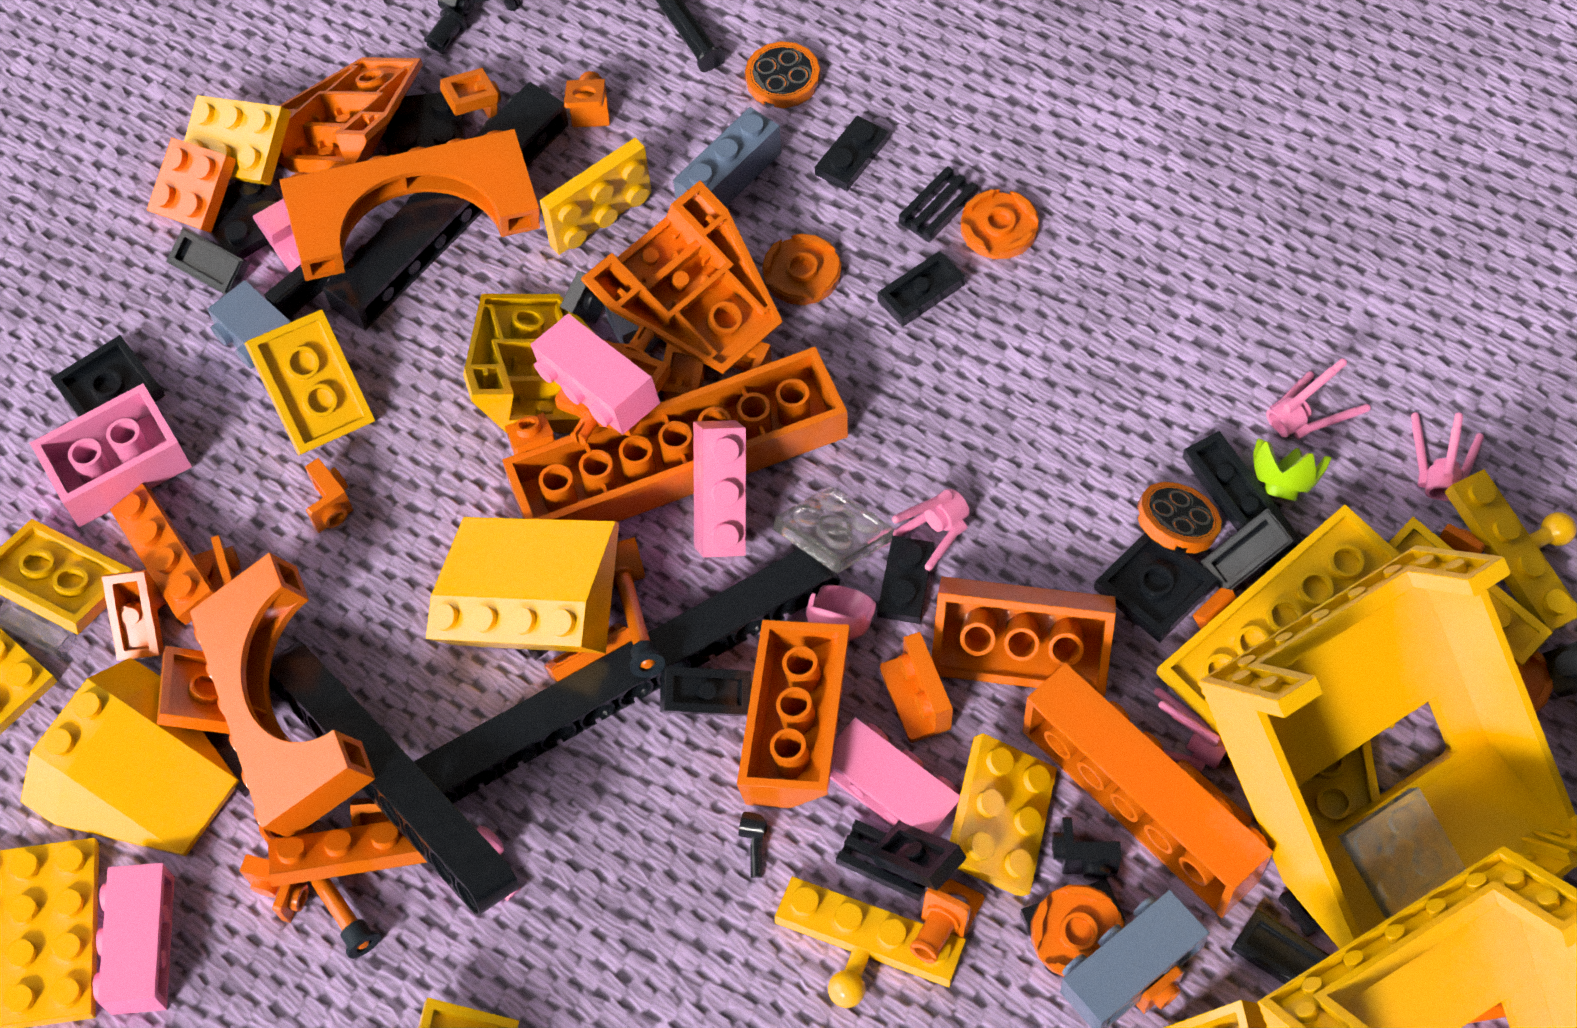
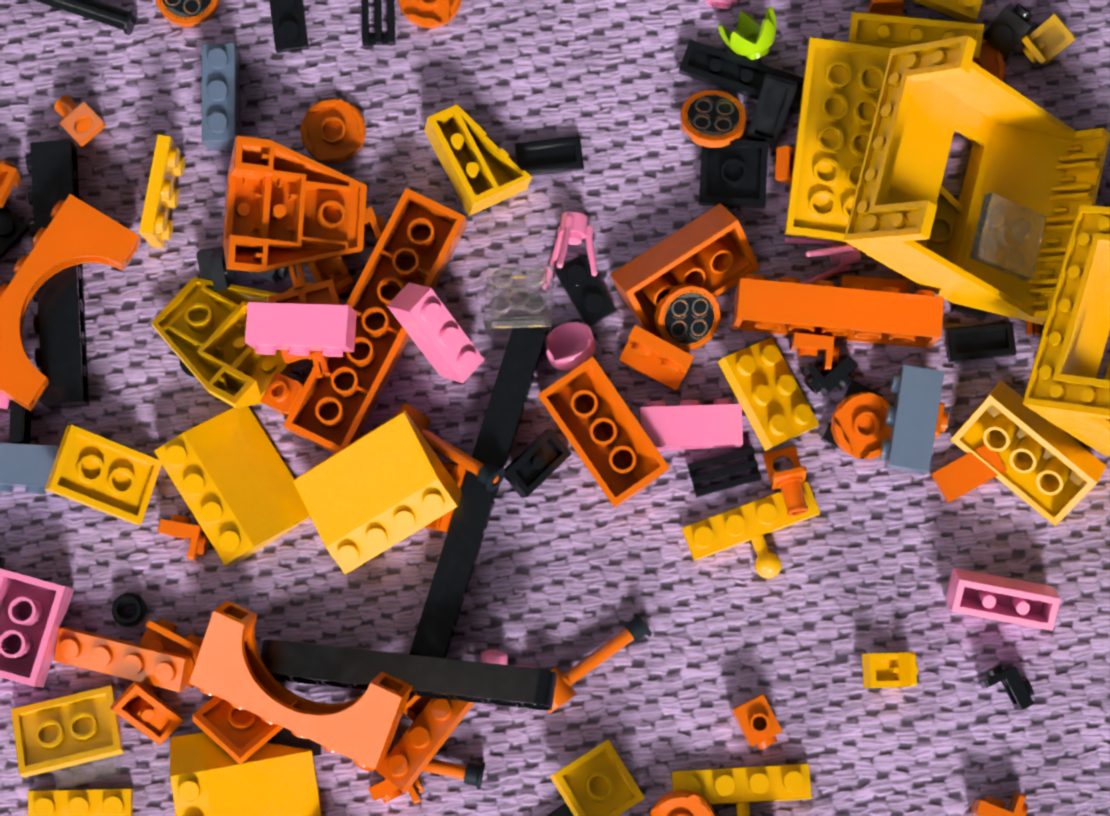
camera: 45 degrees left, 20 degrees up
(212, 511) = (119, 605): none -> black plate
(411, 485) = (234, 483): none -> yellow slope
(517, 922) = (564, 691): none -> orange piece
(755, 828) = (634, 518): black hand -> none
(904, 383) = (472, 162): none -> yellow wedge
(918, 855) = (748, 460): black plate -> none
(921, 288) = (423, 84): black plate -> none
(983, 436) = (550, 156): none -> black tile
(984, 675) = (687, 316): none -> tile
(1092, 806) = (811, 344): none -> orange bracket

